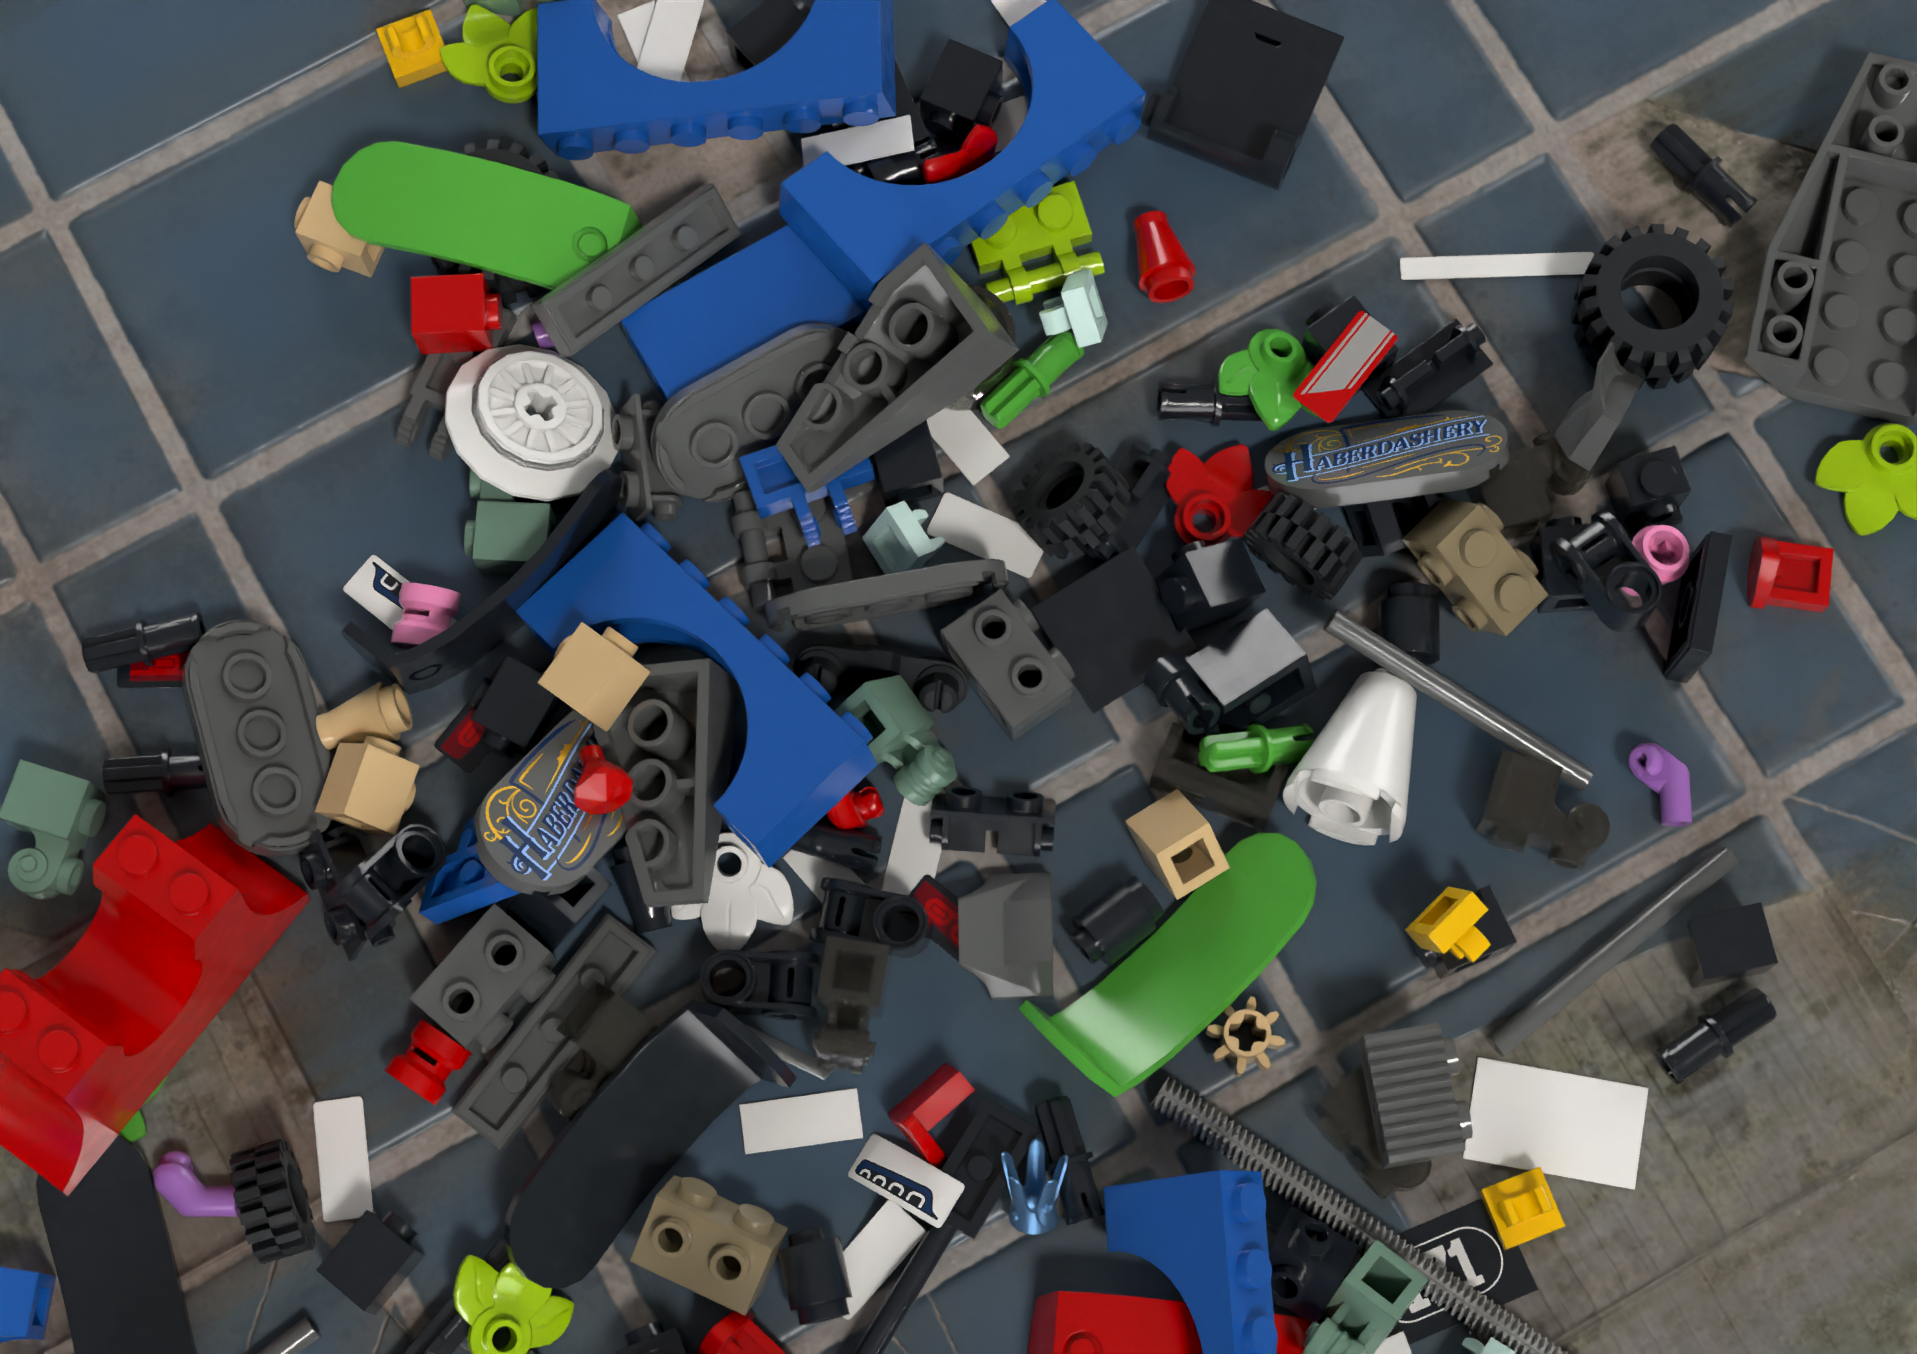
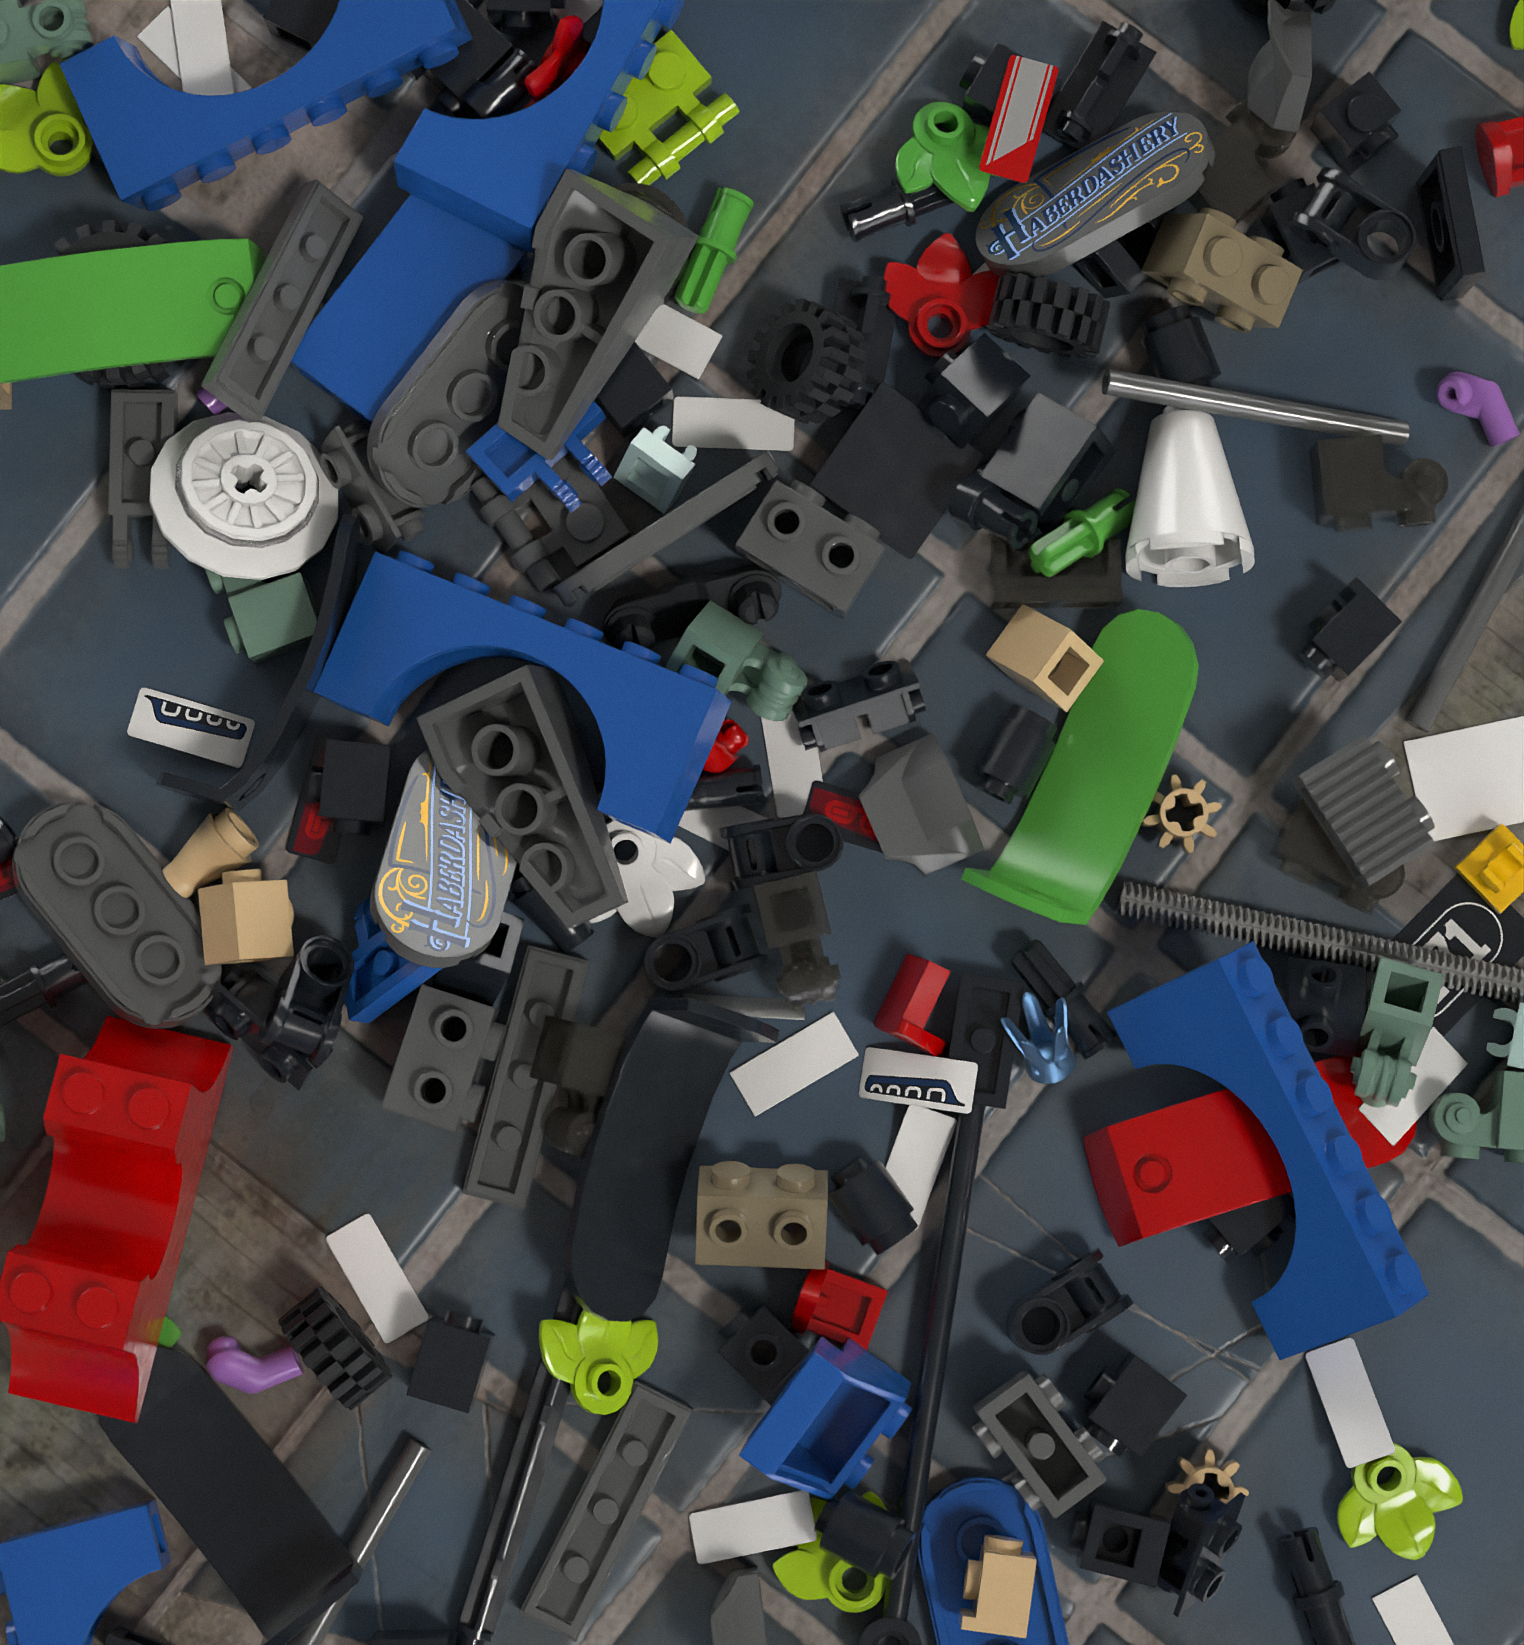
camera: 25 degrees left, 10 degrees up
(418, 1073) = (417, 1171): red wheel -> none
(425, 613) = (228, 748): bright pink wheel -> none
(454, 313) = (121, 419): red brick -> none
(595, 674) = (422, 725): tan brick -> none
(601, 784) = (474, 828): red rock -> none
(862, 142) = (448, 83): white sticker -> none
(1076, 309) = (730, 164): light aqua tile -> none
(1162, 262) = (792, 77): red cone -> none
(1450, 925) = (1336, 633): yellow tile -> none
(1664, 551) = (1397, 183): bright pink cone -> none

